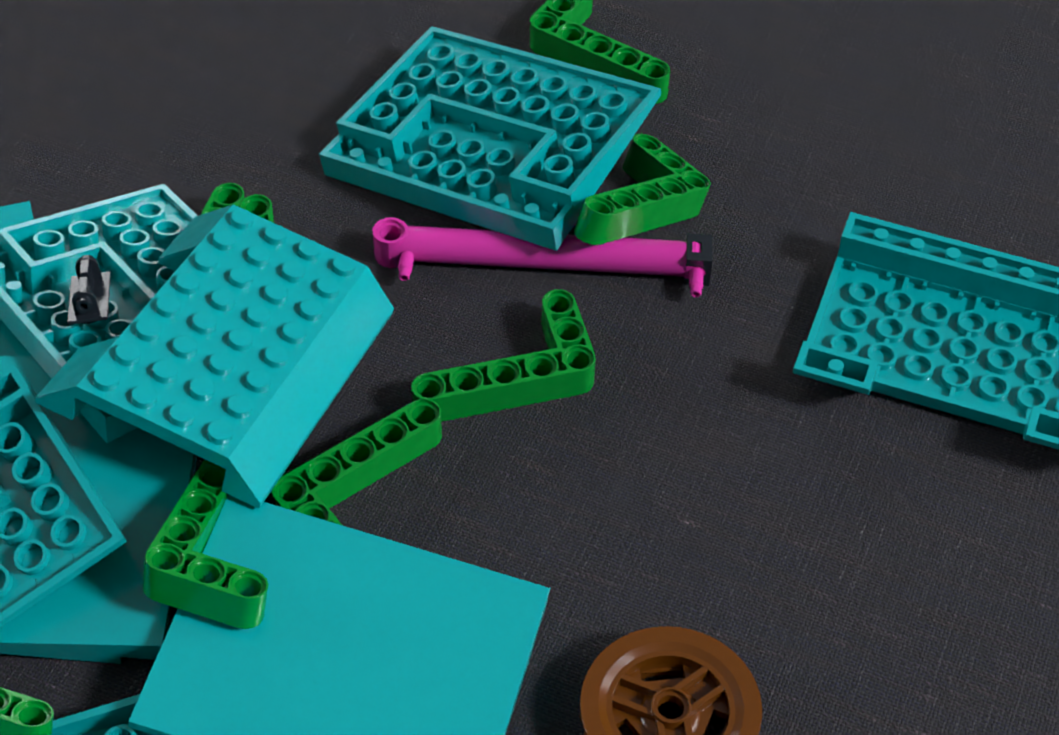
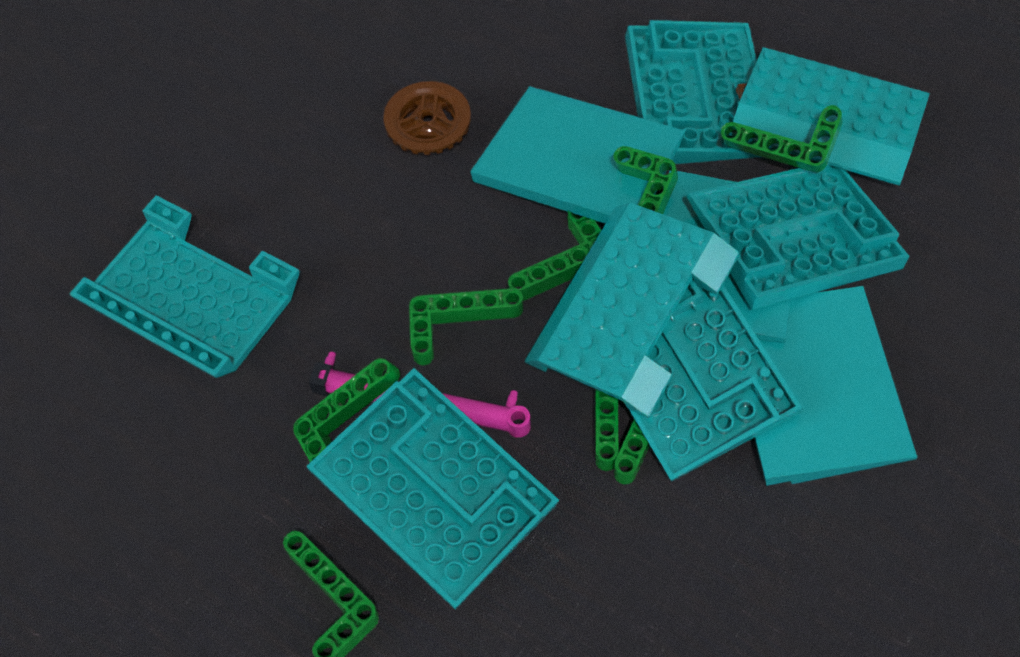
camera: 165 degrees left, 10 degrees up
(89, 292) = (714, 343): black hinge -> none

